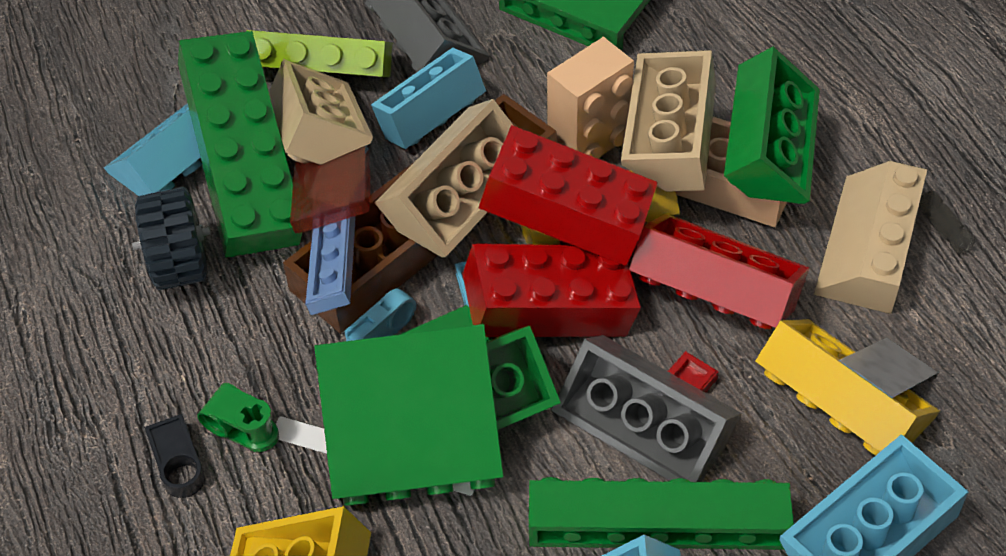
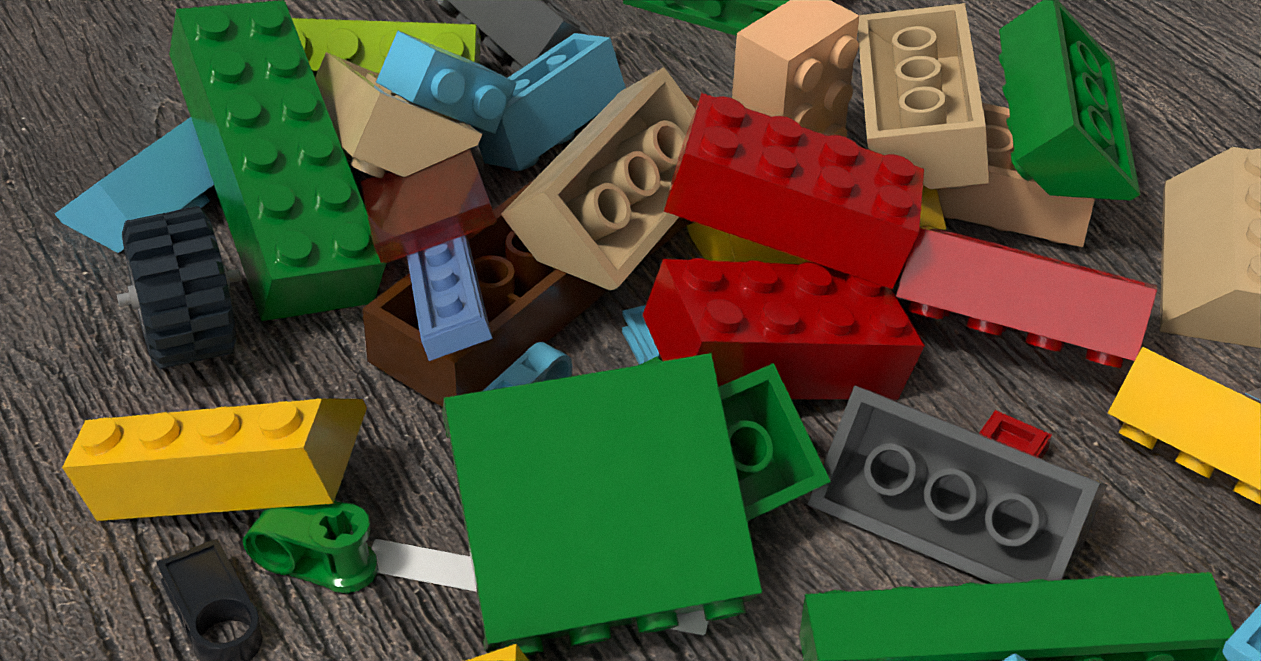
camera: 10 degrees left, 10 degrees down
(184, 360) = (215, 458): none -> yellow slope
(354, 95) = (445, 82): none -> medium azure brick

